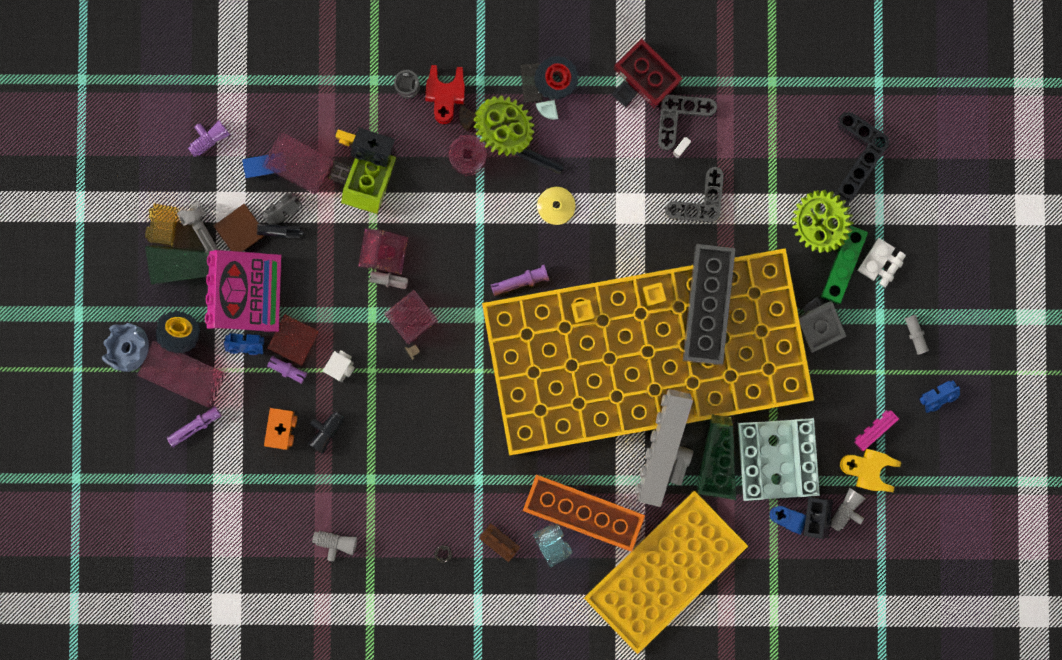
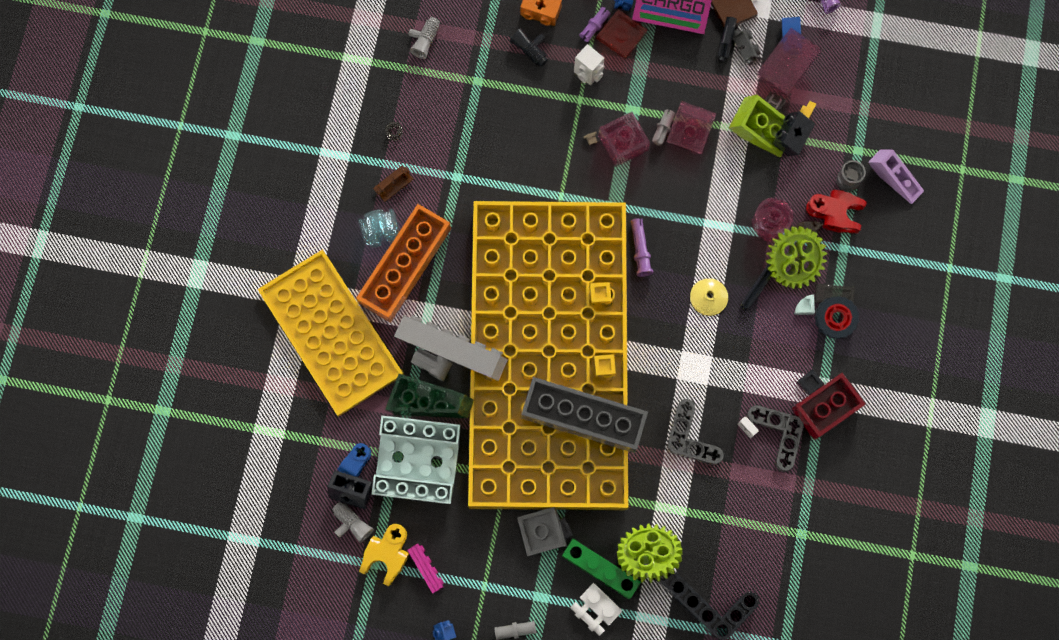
camera: 100 degrees right, 10 degrees down
(396, 39) = (895, 174): none -> lavender slope

